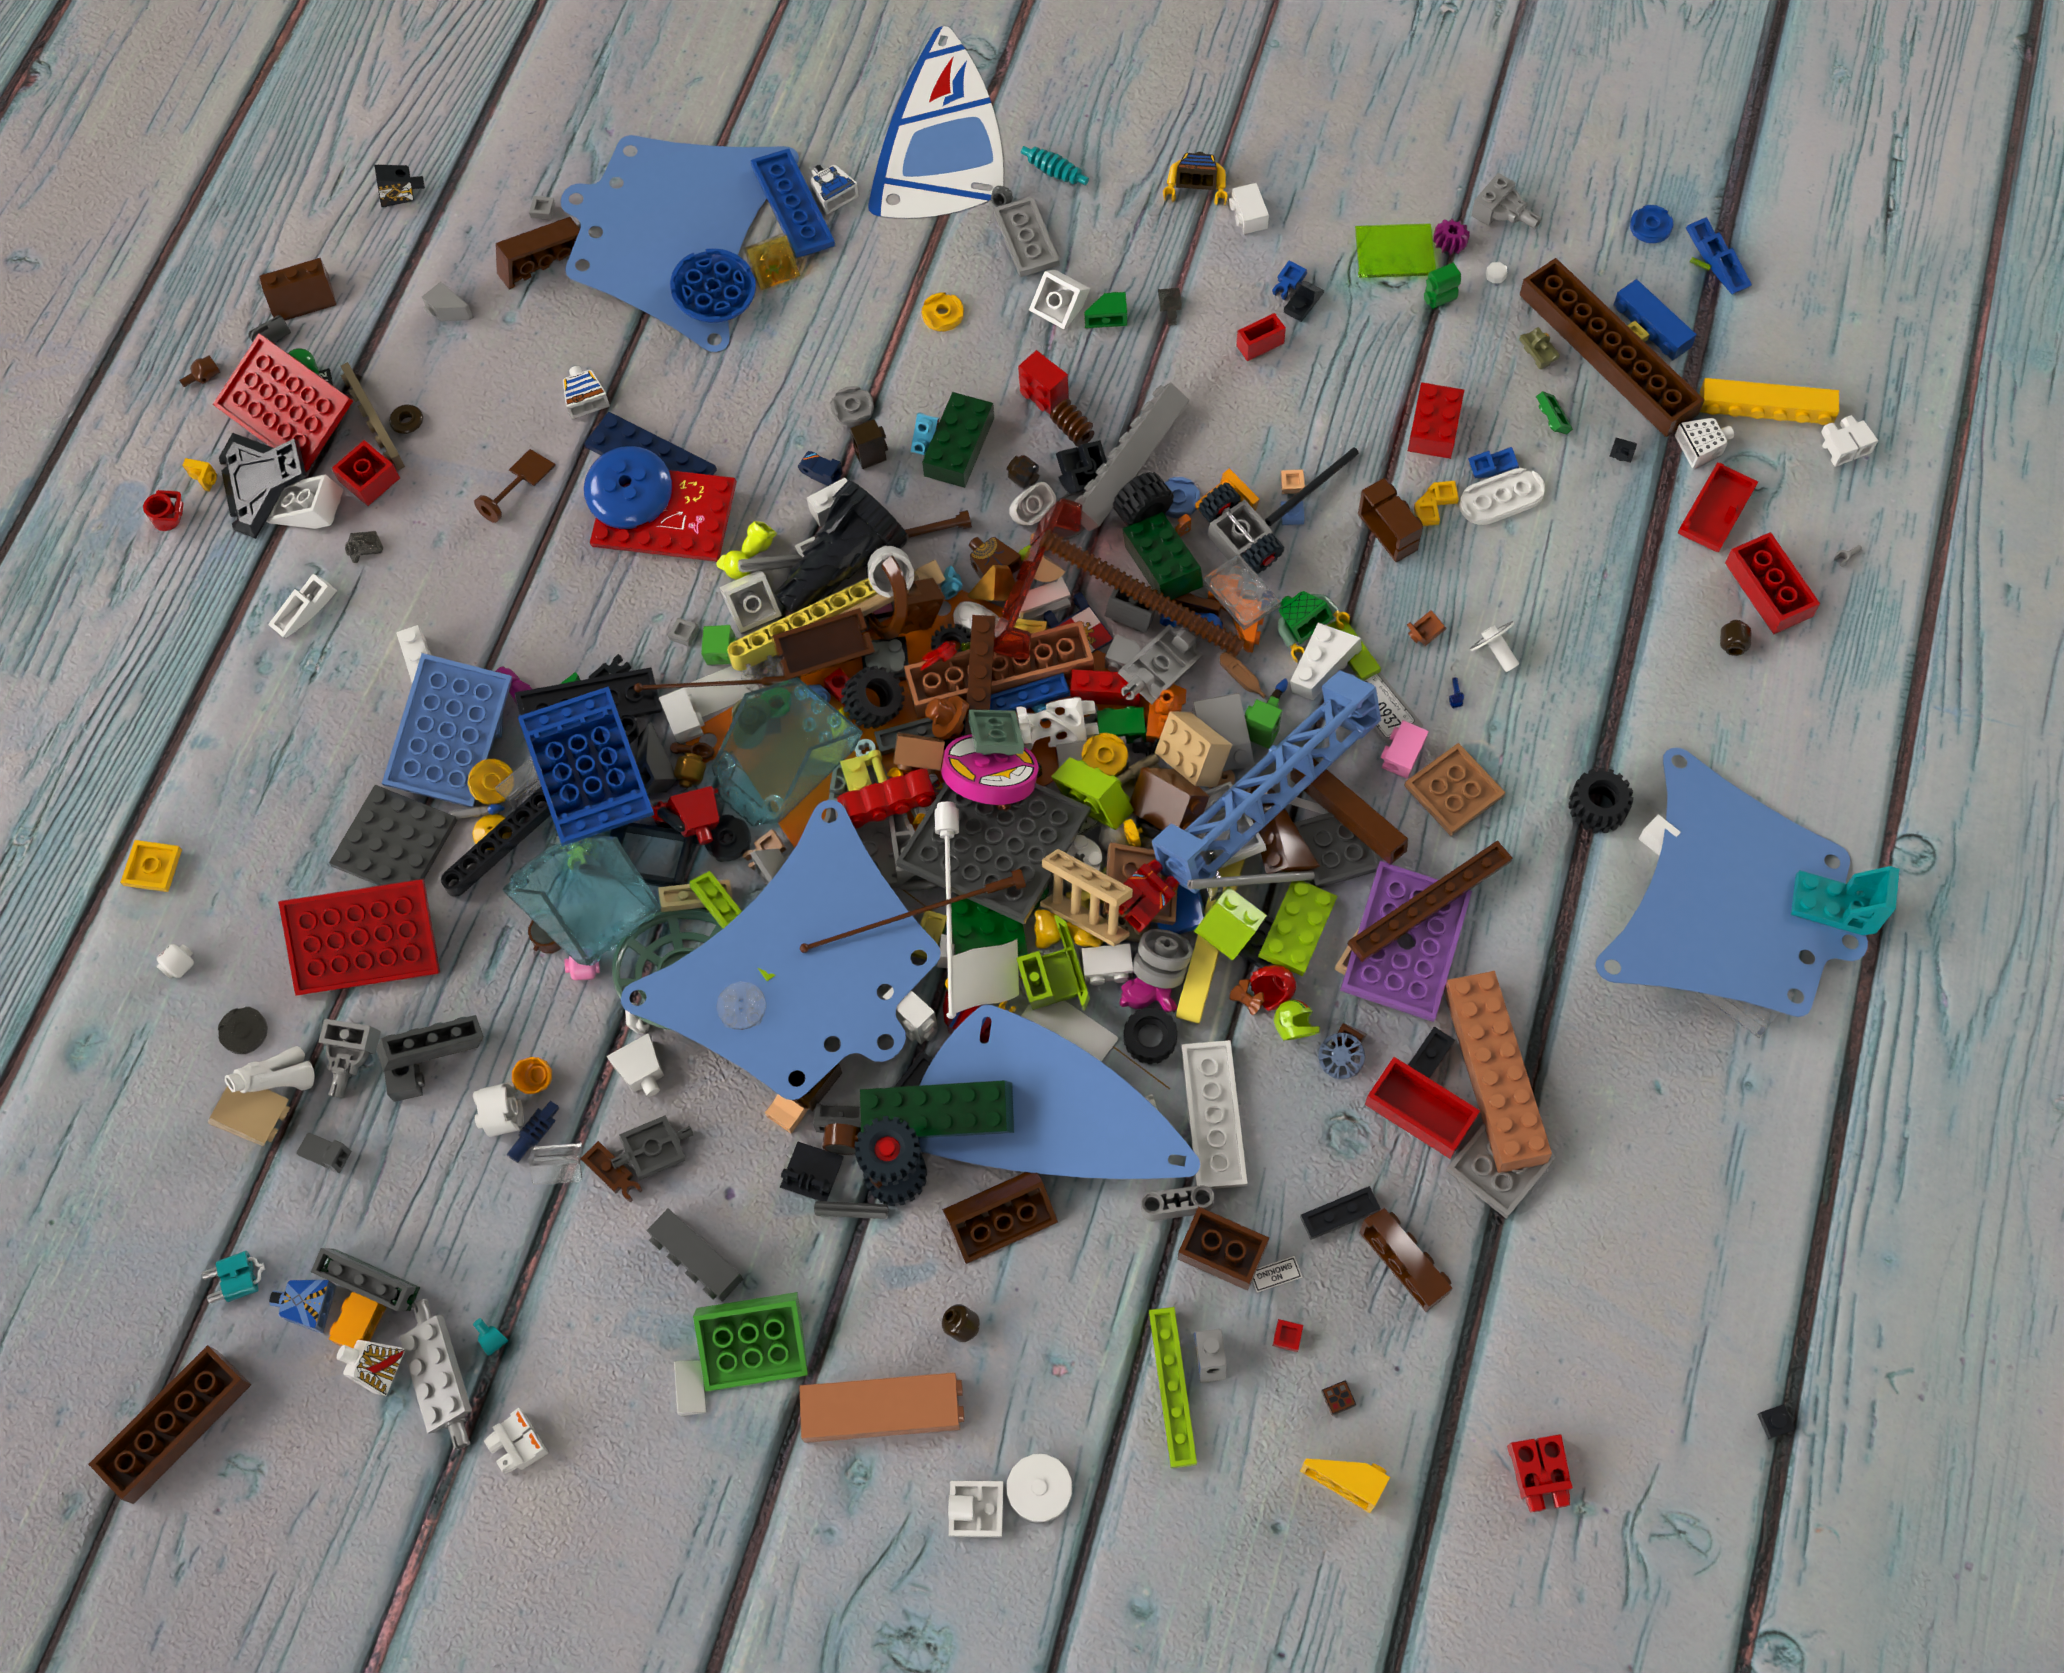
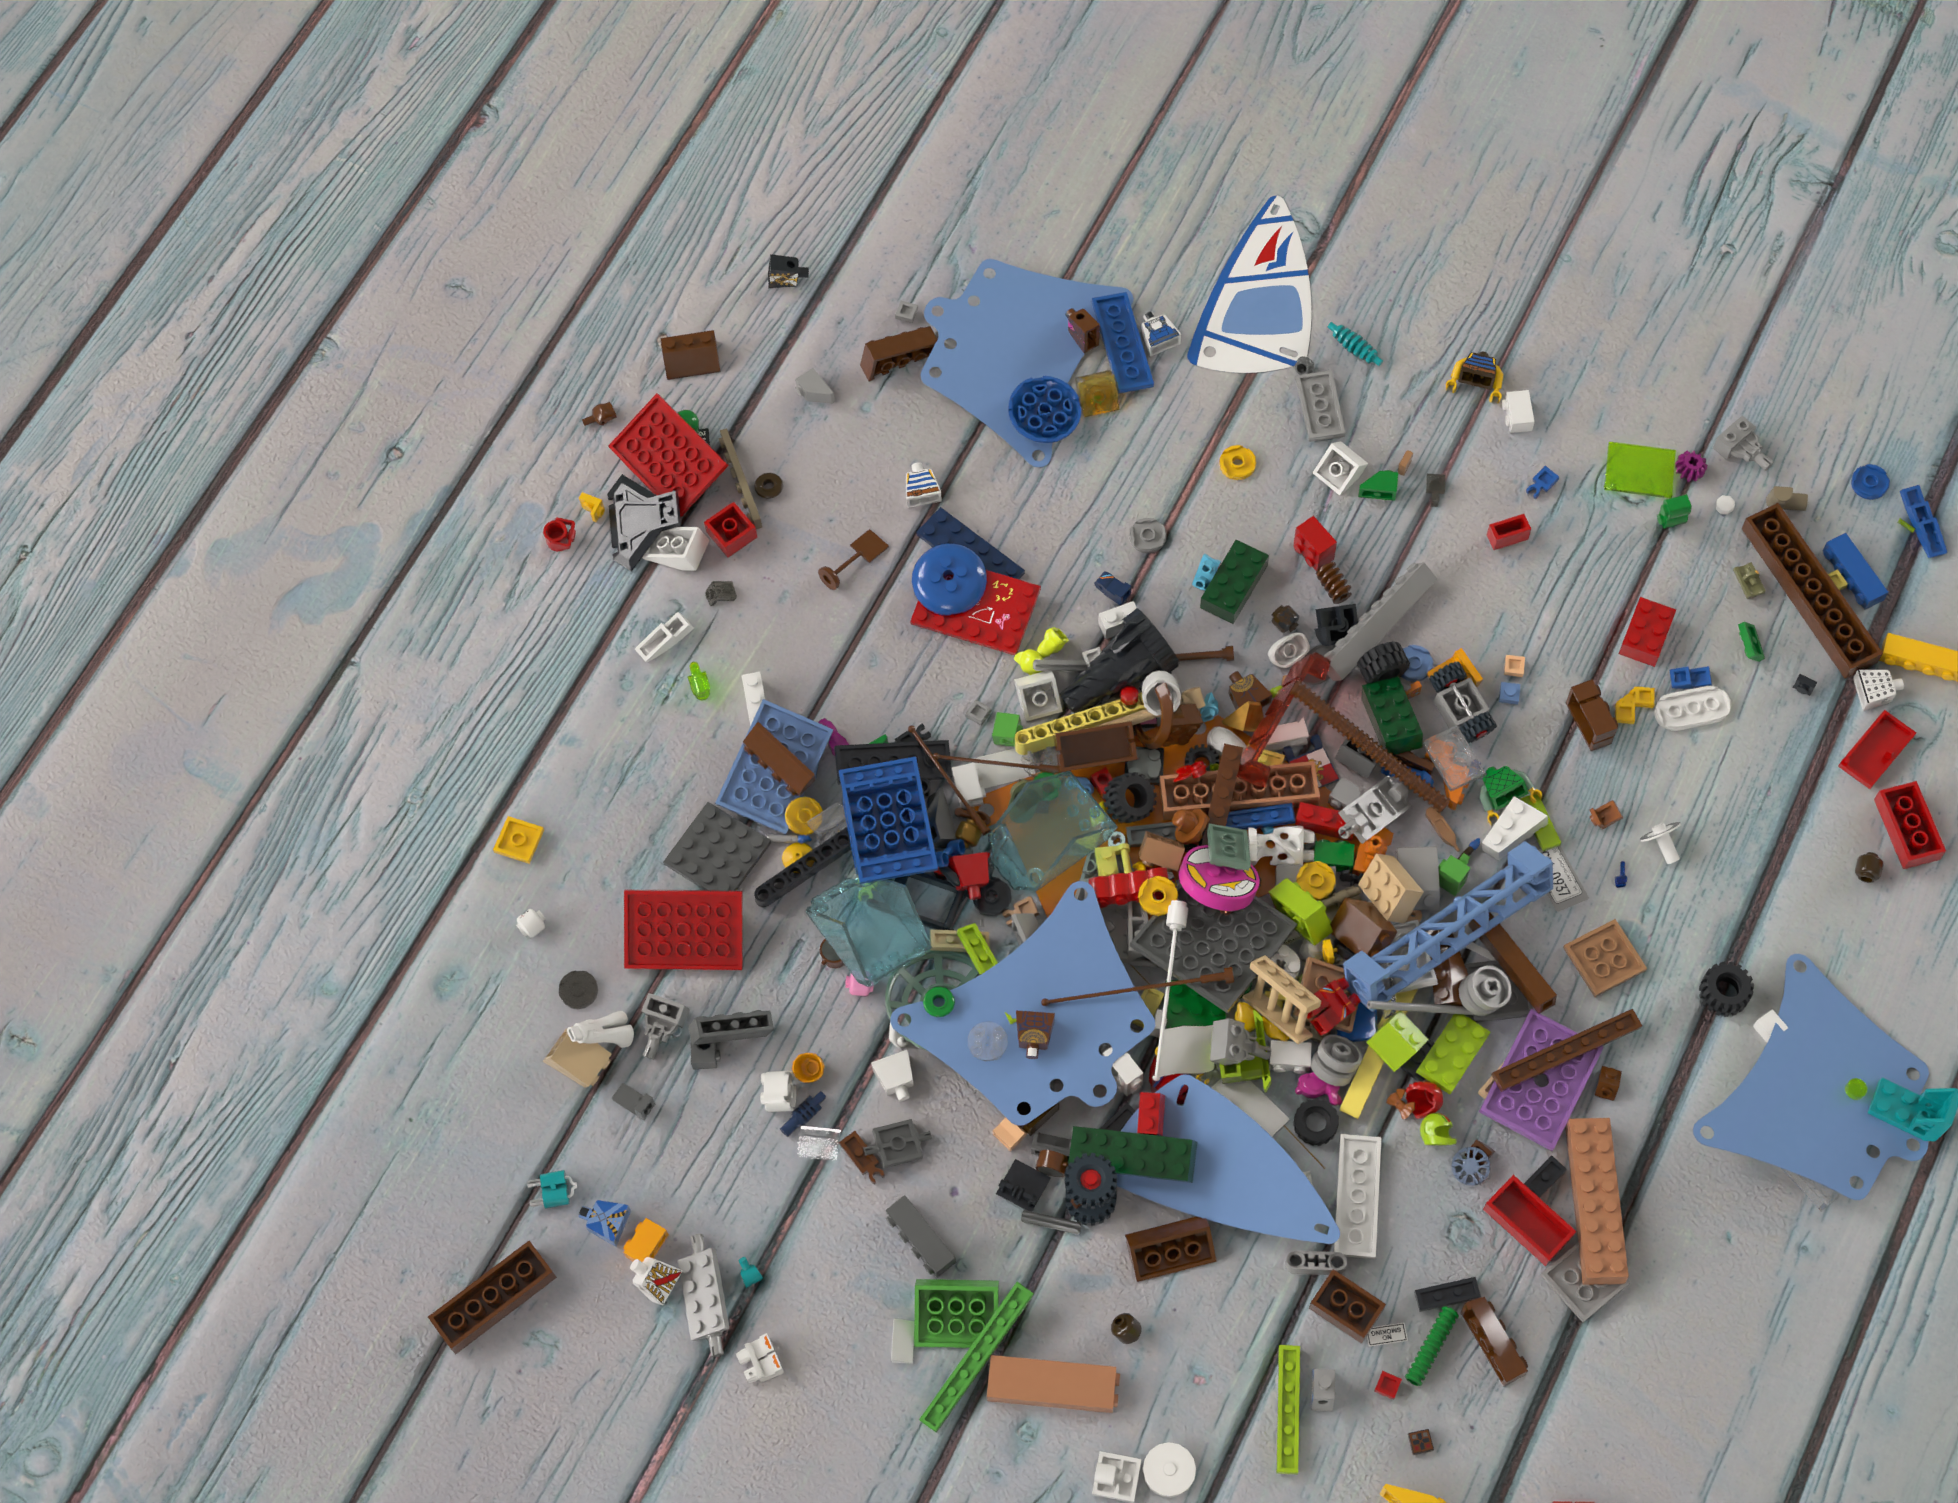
camera: 10 degrees right, 0 degrees up
(273, 329) = (664, 387): dark grey arm -> none
(348, 650) = (699, 682): none -> clear neon green arm
(365, 1279) = (657, 1210): dark grey piece -> none
(448, 719) = (779, 760): none -> reddish brown slope
(671, 959) = (938, 992): none -> green piece
(673, 787) = (953, 848): none -> blue bar
(686, 741) = (970, 810): none -> reddish brown piece
(745, 194) = (1083, 329): none -> reddish brown torso
(782, 1391) = (976, 1357): none -> bright green tile
(795, 984) = (1034, 1031): none -> torso
(855, 582) = (1129, 695): none -> red tile
(869, 443) = (1158, 574): dark brown brick -> none
(910, 792) = (1152, 885): none -> yellow tile
(951, 1058) = (1151, 1113): none -> red brick
(1038, 959) = (1234, 1044): none -> light grey brick
(1048, 570) = (1294, 712): tan brick -> none
(1132, 281) = (1405, 462): none -> medium nougat tile
(1303, 300) = (1551, 503): black slope -> none
(1313, 485) = (1530, 673): black piece -> none
(1323, 848) = (1485, 990): none -> light grey wheel
(1332, 1278) = (1431, 1346): none -> green piece
(1404, 749) = (1568, 916): bright pink brick -> none
(1484, 932) = (1608, 1083): none -> reddish brown bracket
(1562, 250) = (1787, 499): none -> dark tan brick
(1772, 888) = (1856, 1089): none -> clear neon green tile

